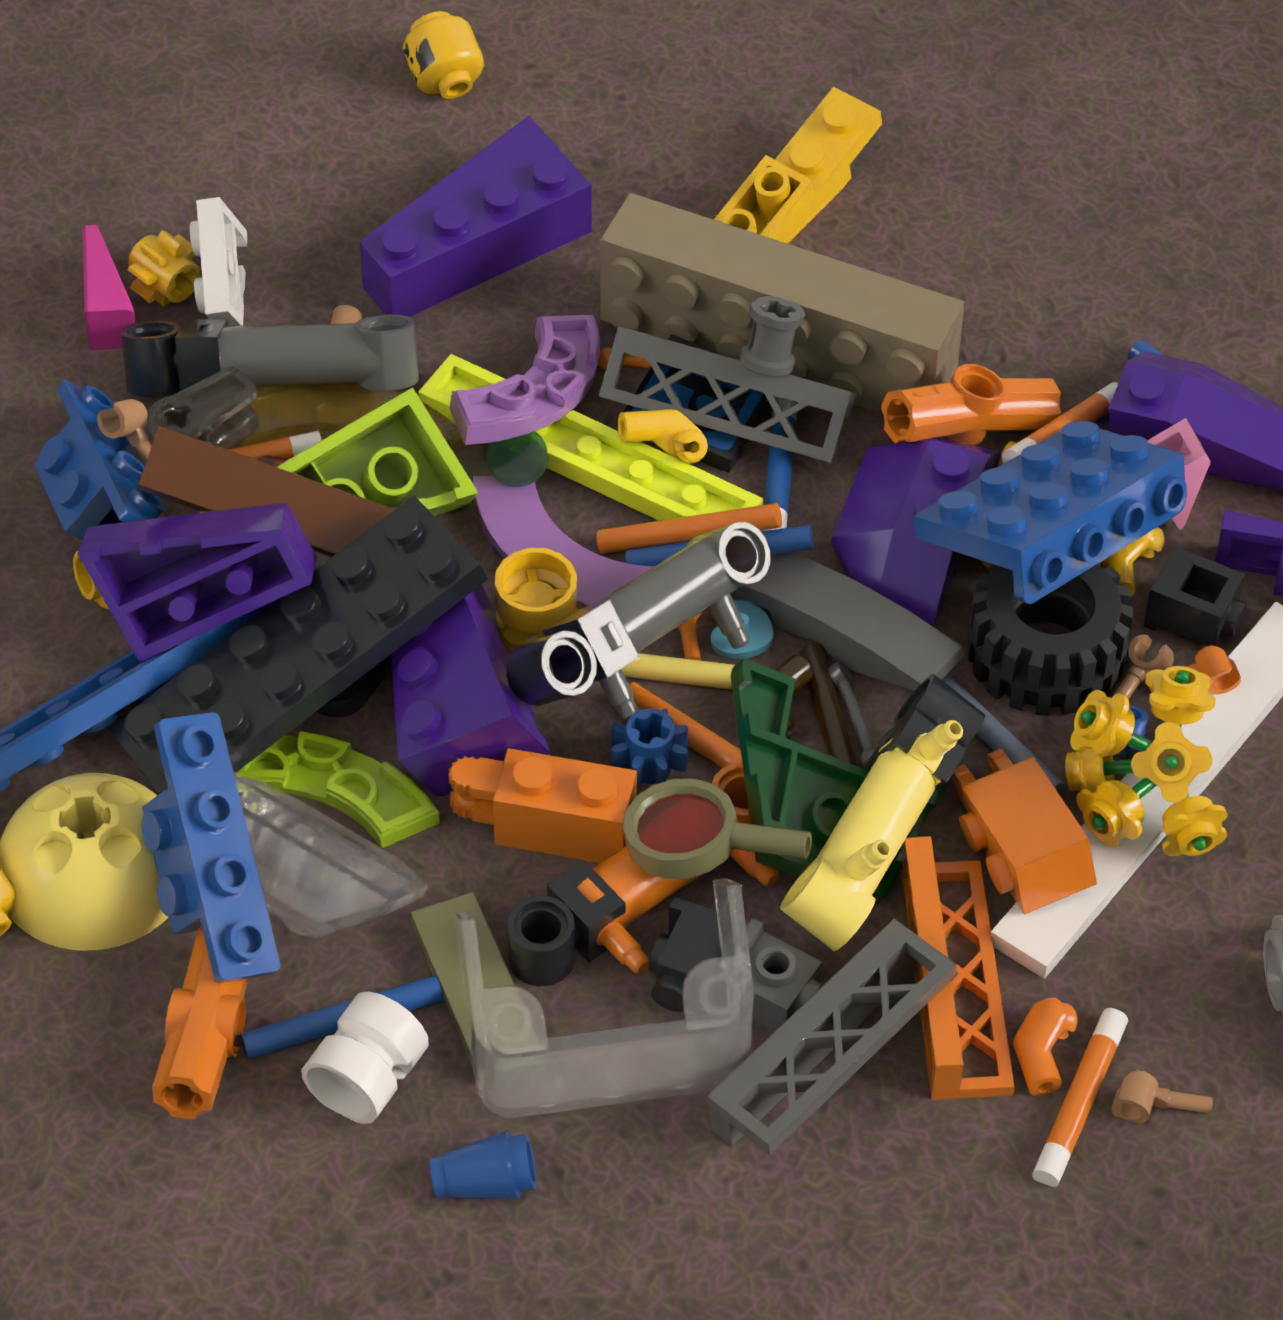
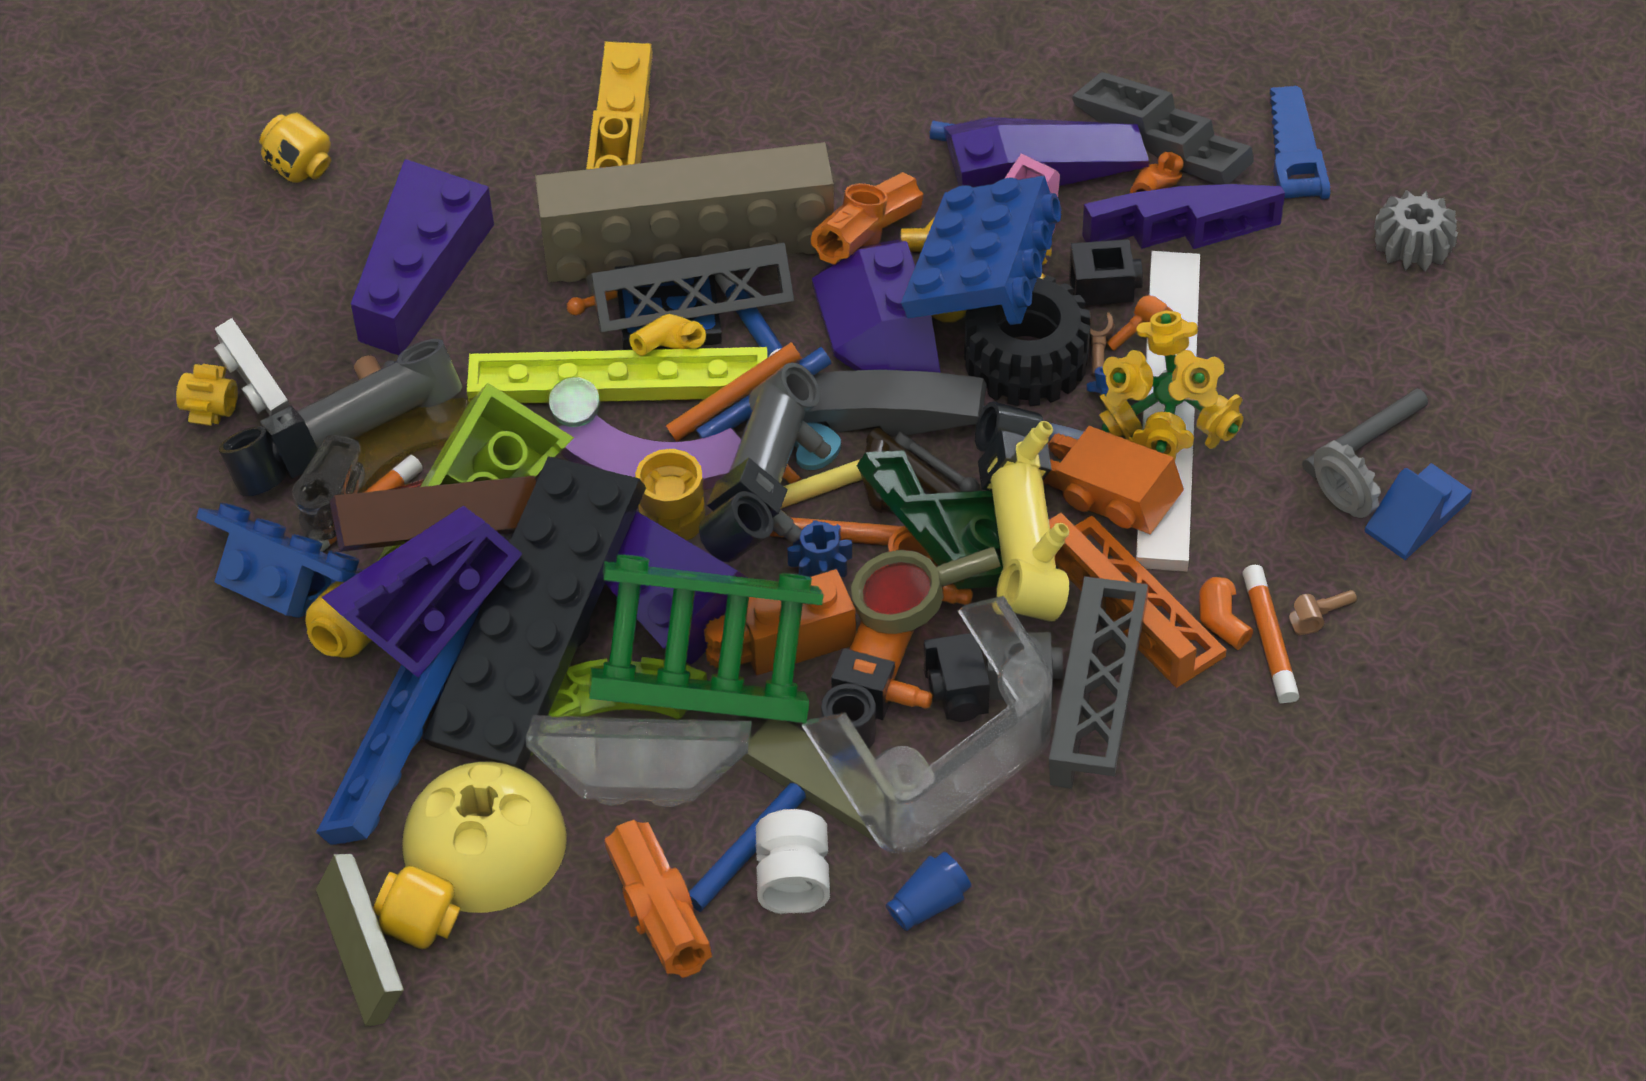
camera: 30 degrees left, 0 degrees up
(105, 297) = (181, 439): dark pink slope -> none
(129, 420) = (288, 506): medium nougat hand -> none
(206, 850) = (583, 779): blue bracket -> none
(377, 804) = (672, 683): none -> green fence
(547, 392) = (559, 346): medium lavender tile -> none
(772, 336) = (710, 228): dark grey bush -> none
(1088, 410) = (931, 200): orange bar -> none

